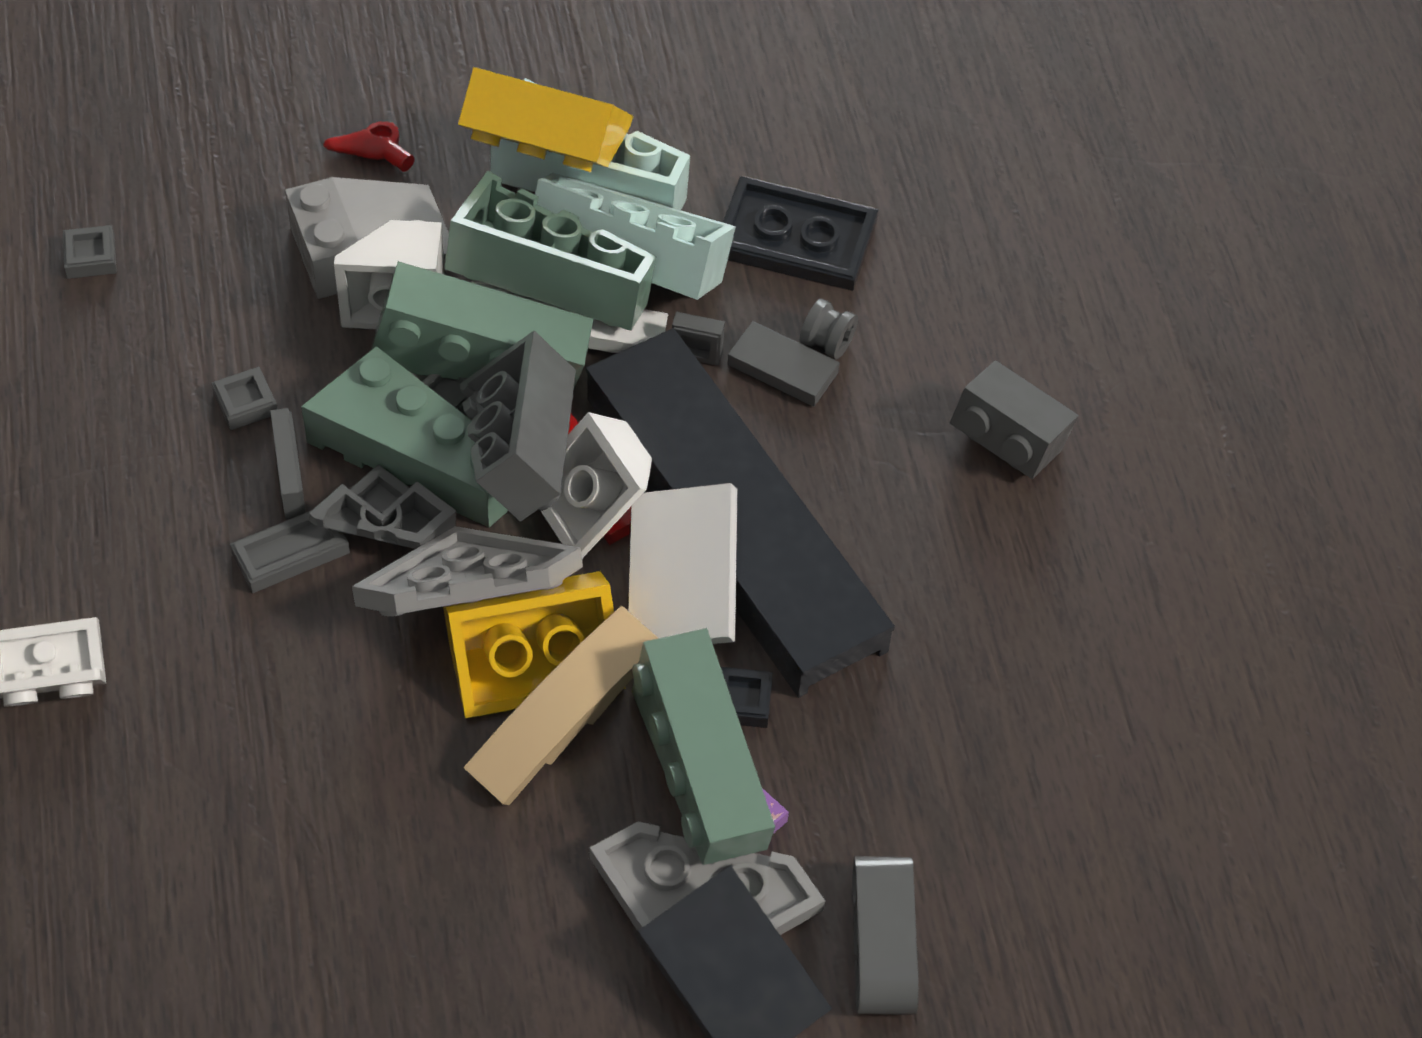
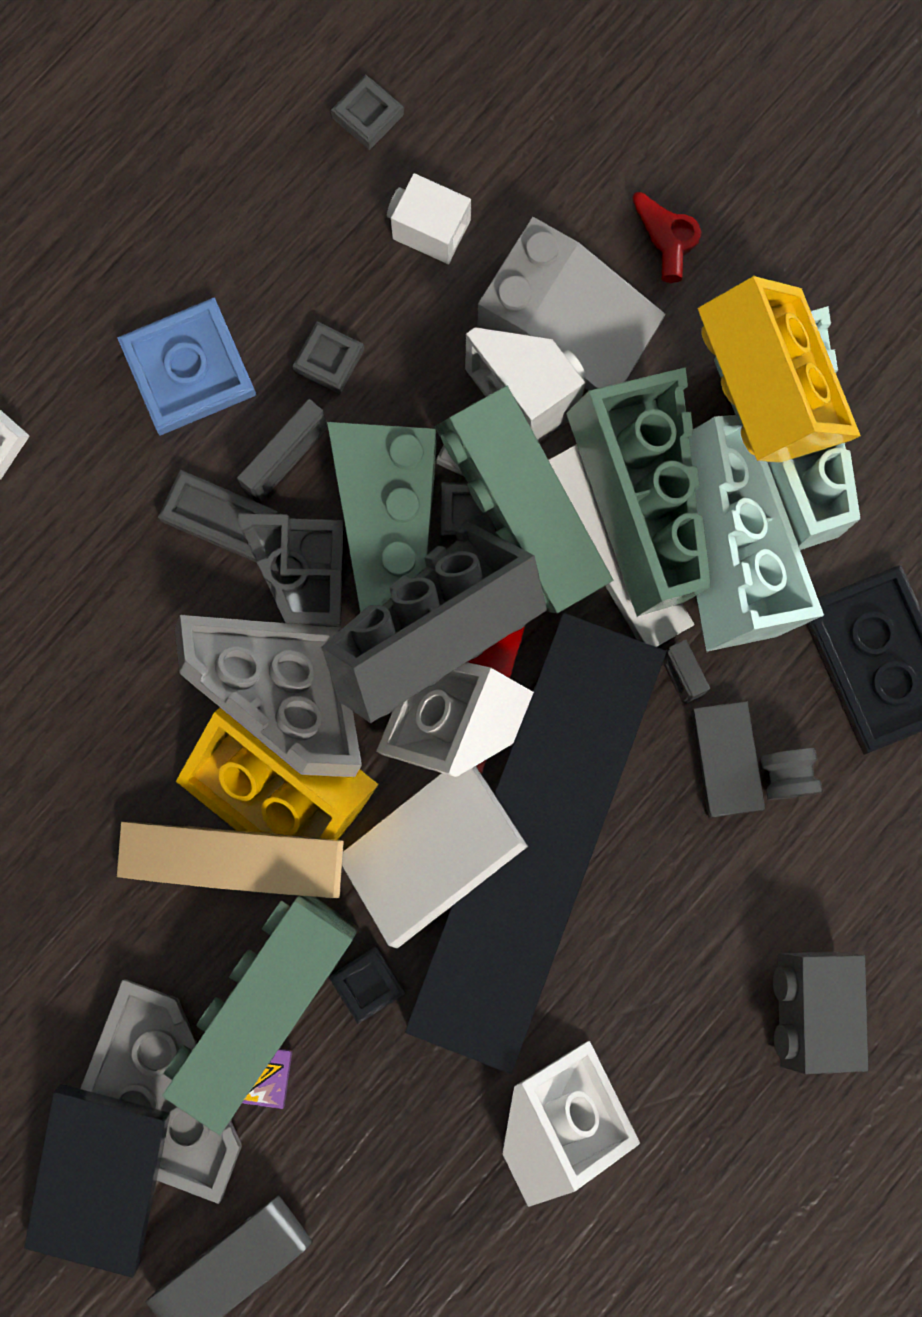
camera: 55 degrees right, 25 degrees up
(153, 490) = (186, 366): none -> medium blue tile
(212, 262) = (429, 217): none -> white brick
(964, 636) = (565, 1127): none -> white slope

